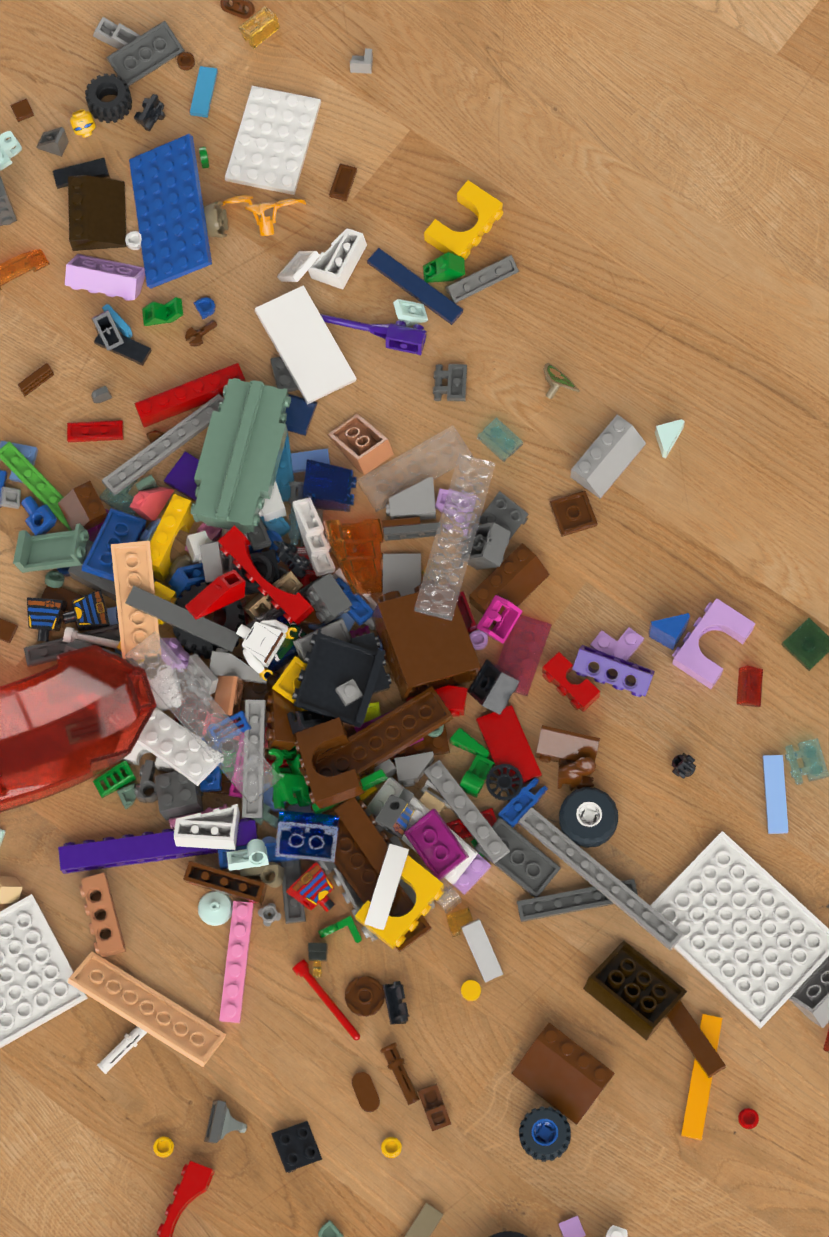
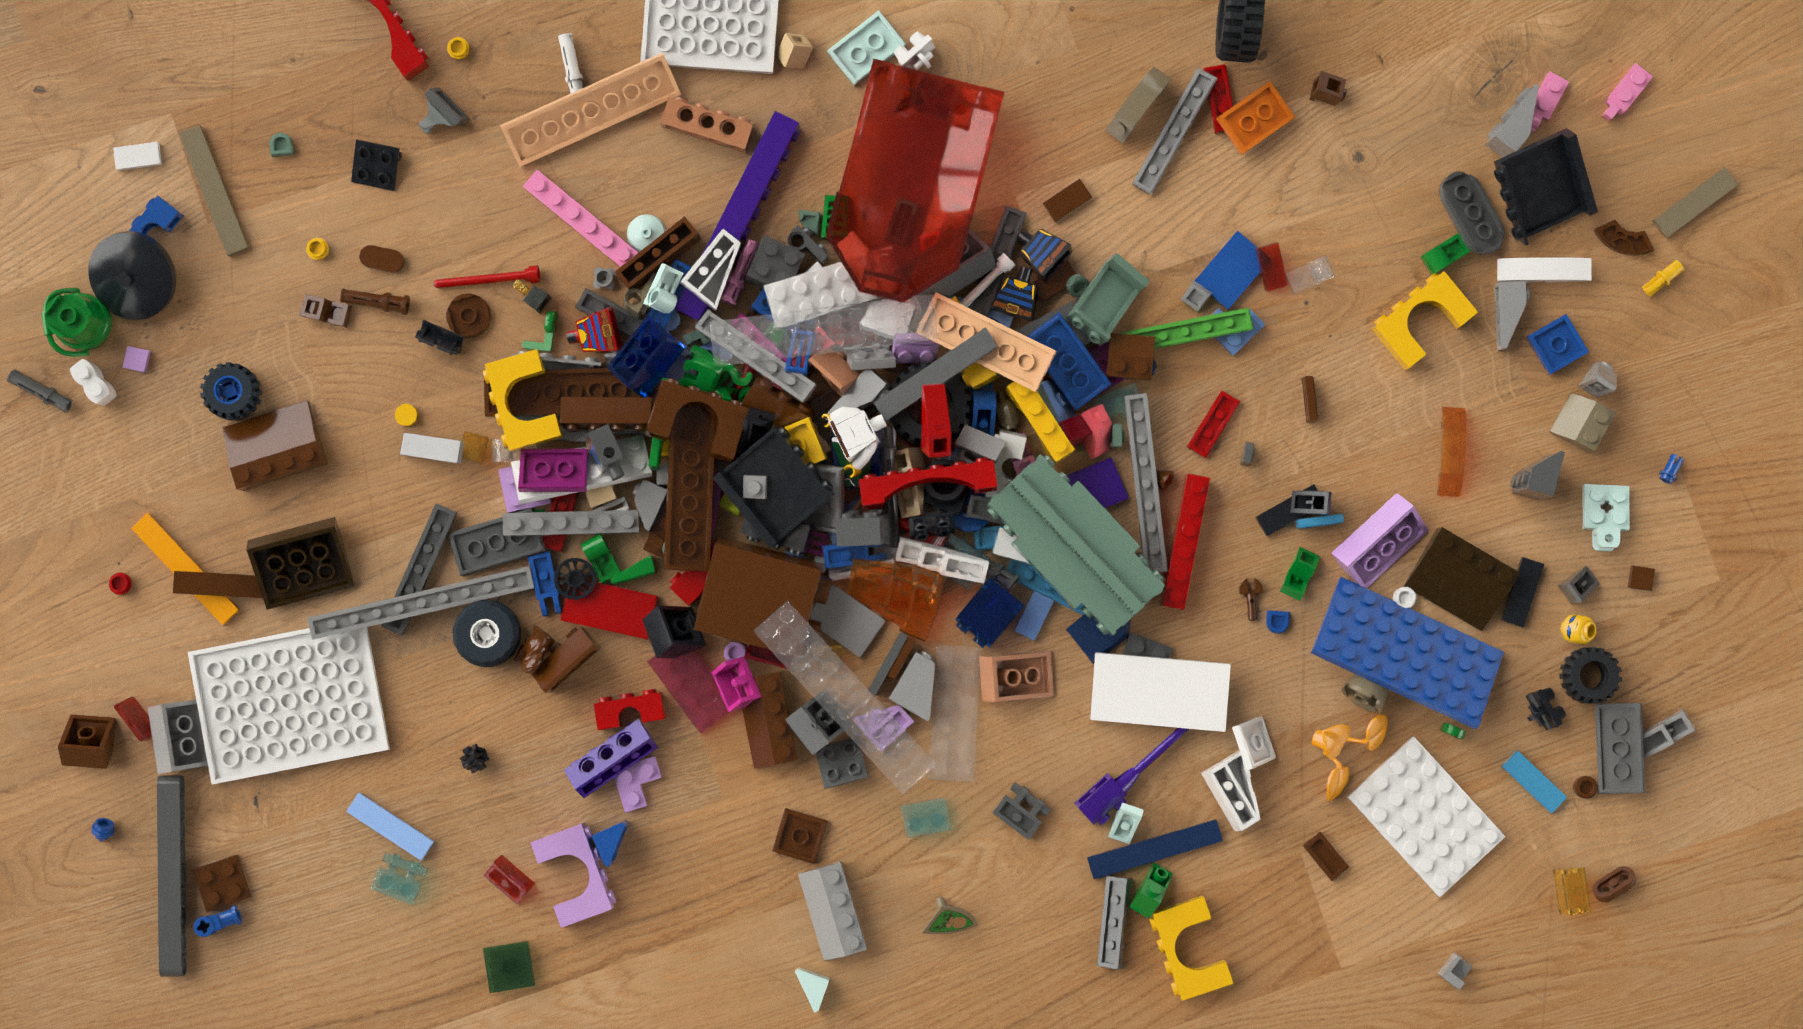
camera: 120 degrees right, 15 degrees up
(36, 514) = (1160, 310): blue piece -> none
(157, 508) = (1075, 429): none -> dark red slope
(386, 886) = (539, 394): white slope -> none

